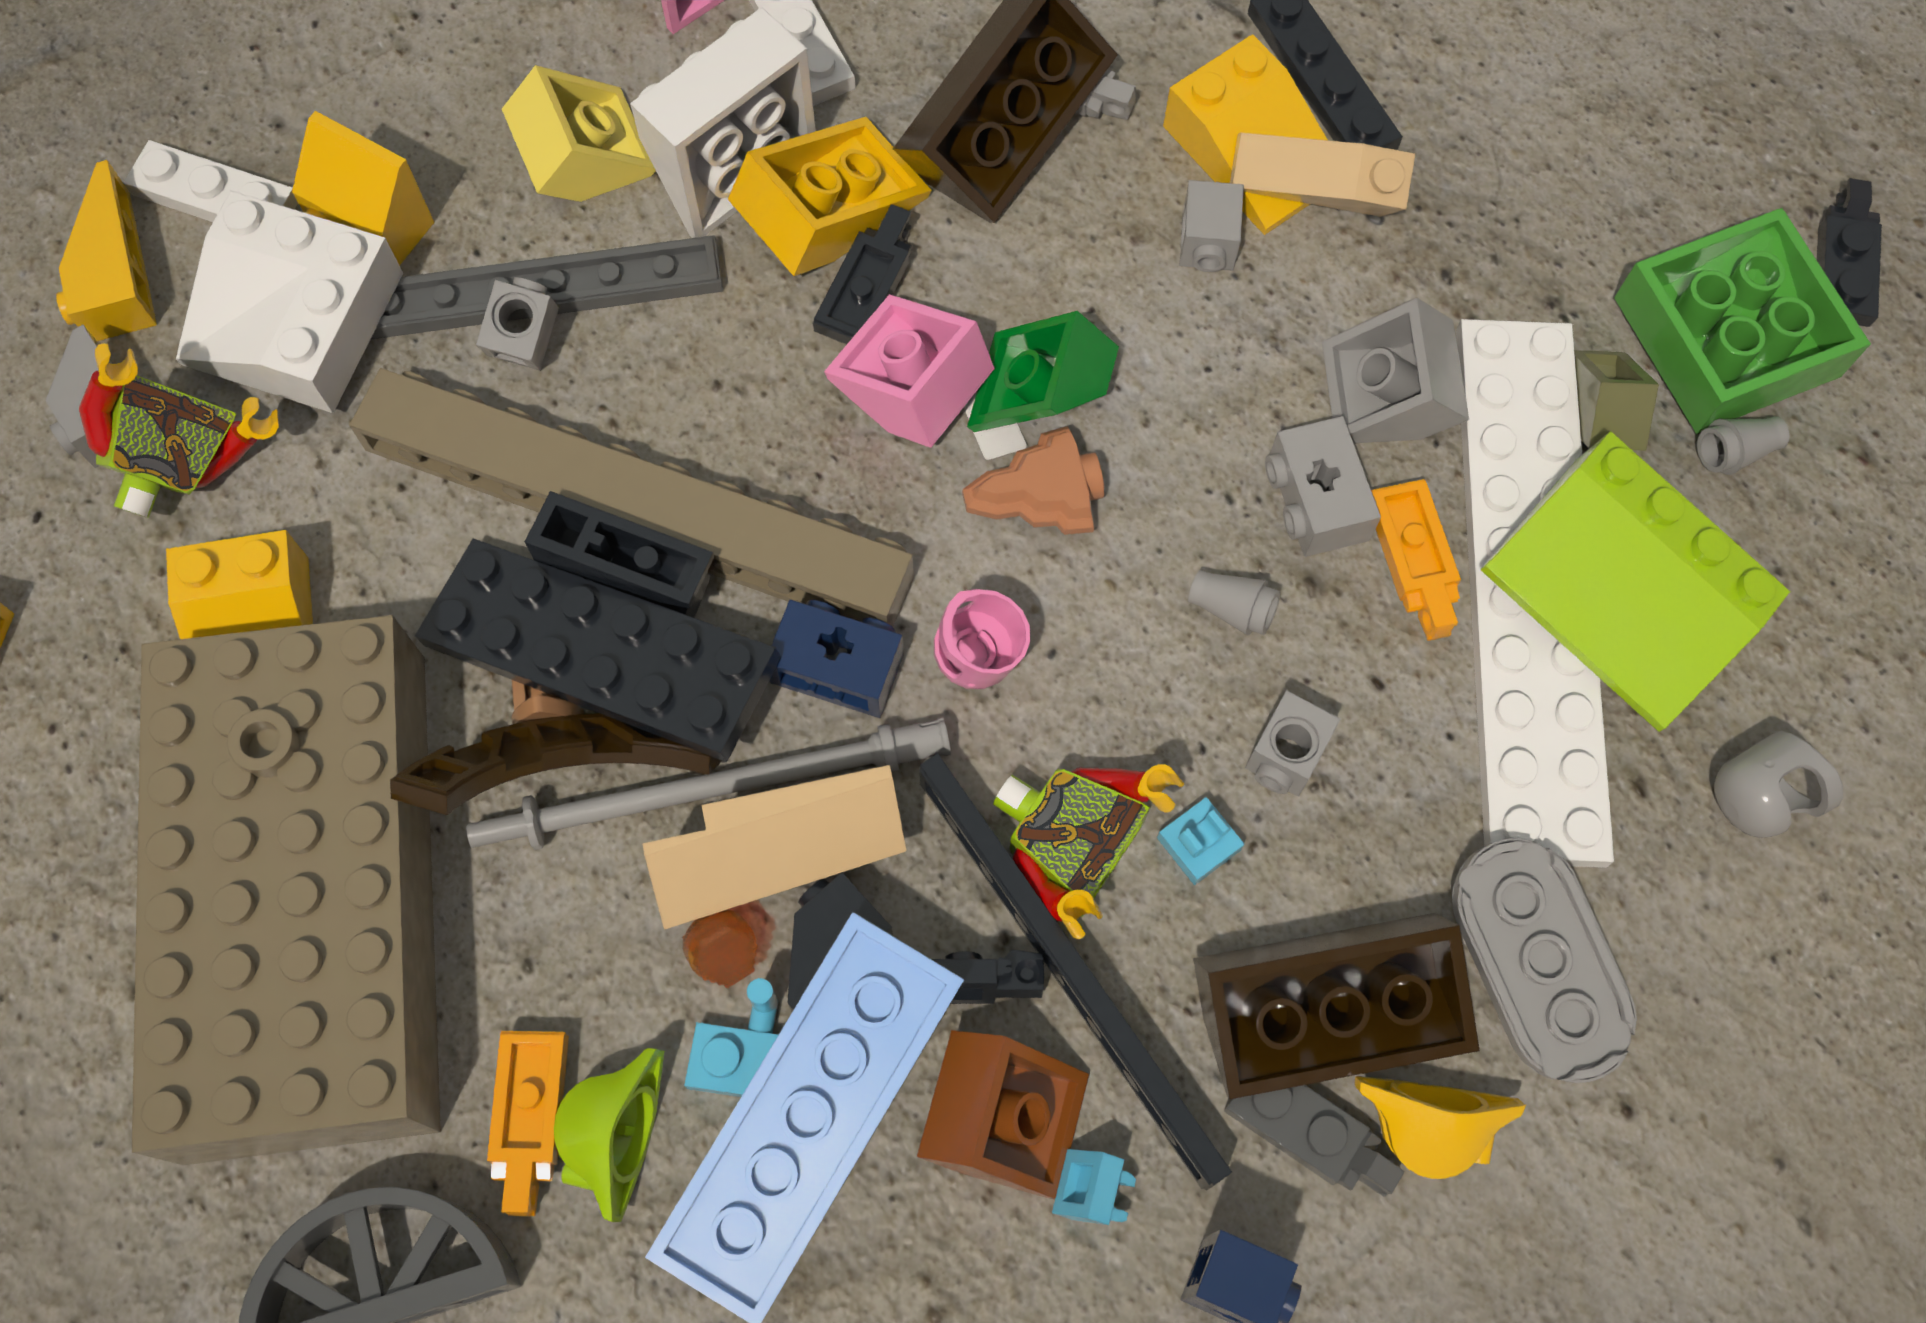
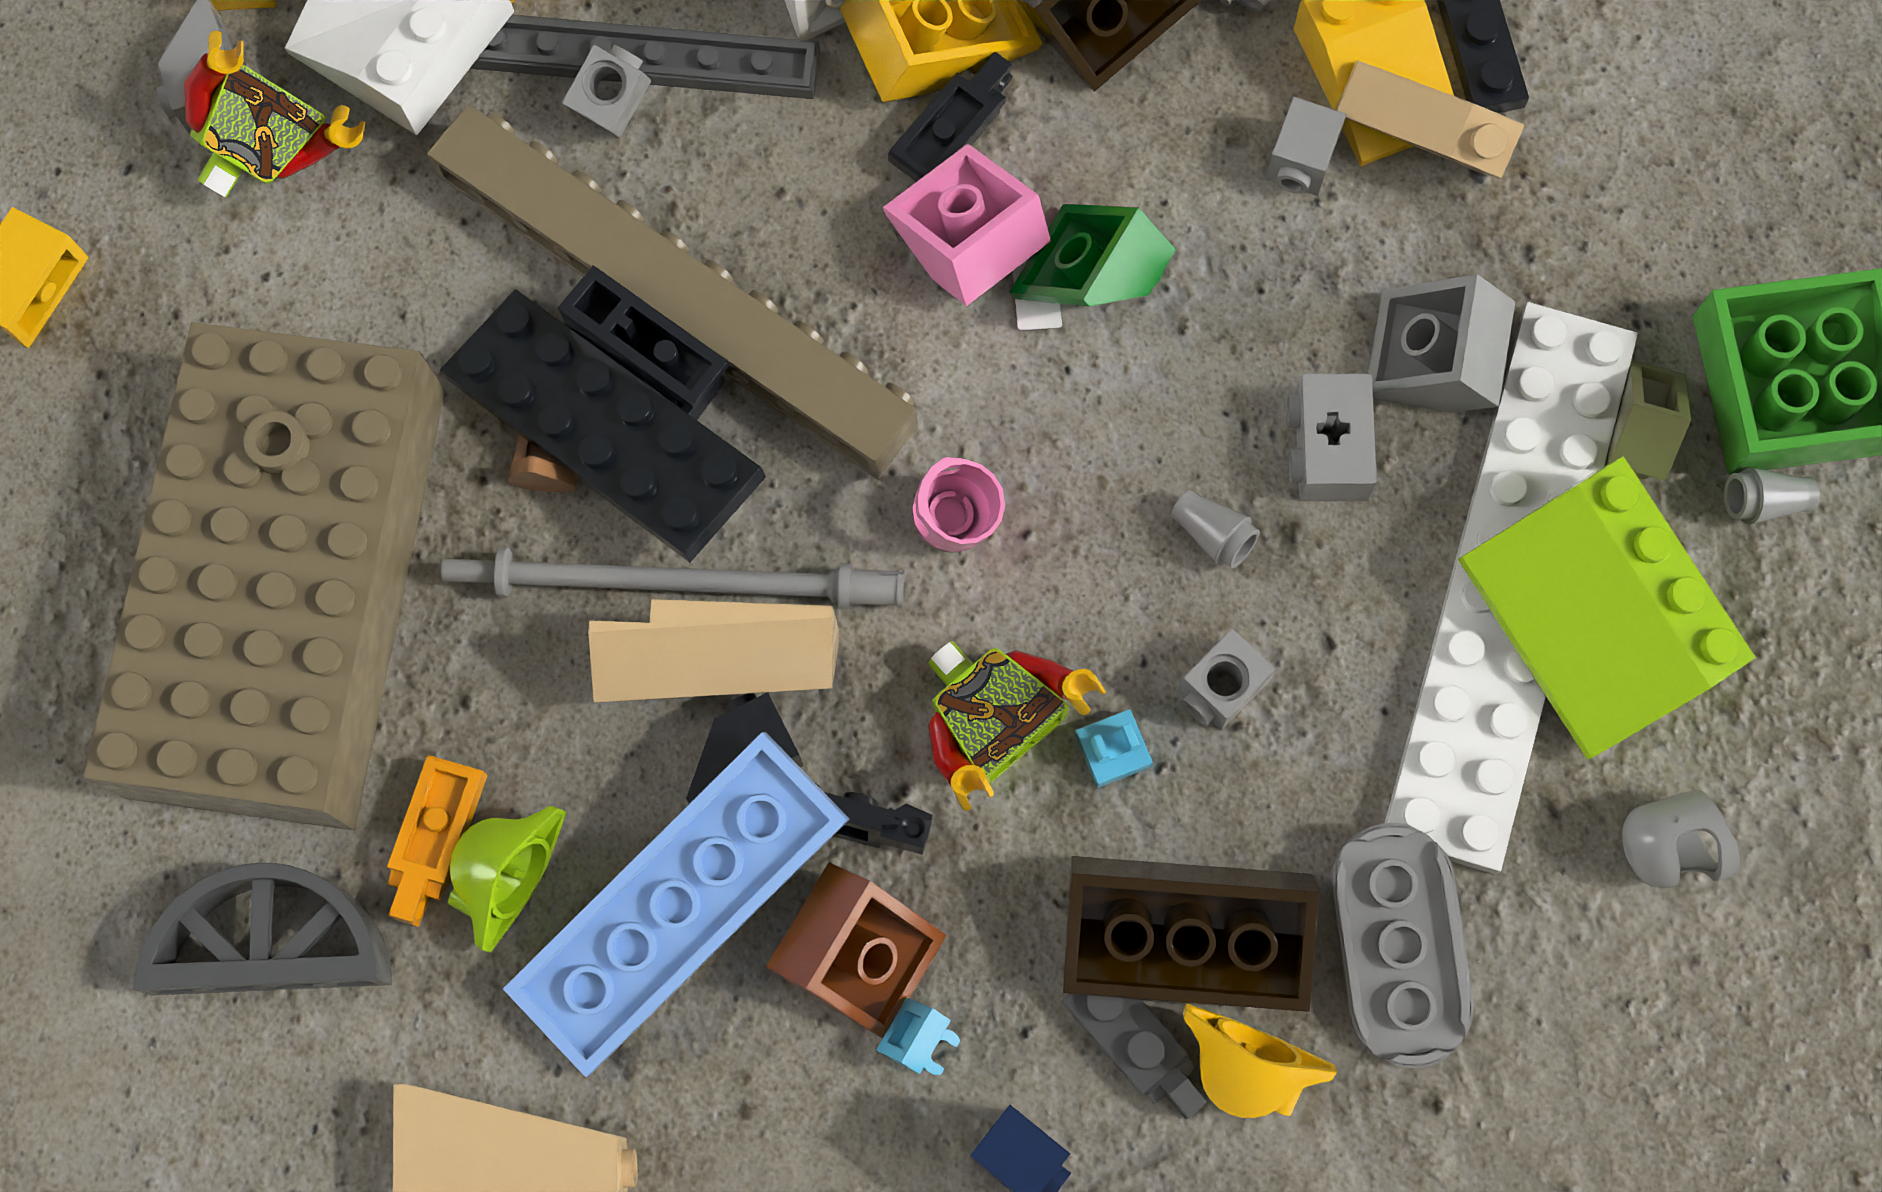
camera: 20 degrees right, 5 degrees up
(239, 585) = (293, 286): yellow slope -> none
(517, 750) = (517, 503): dark brown tile -> none
(720, 948) = (642, 732): clear orange piece -> none
(728, 1057) = (622, 831): medium azure plate -> none
(853, 680) = (834, 514): dark blue brick -> none
(1042, 486) = (1063, 369): nougat rock -> none
(1073, 975) = (954, 839): black tile -> none
(1418, 555) = (1406, 525): light orange hinge -> none

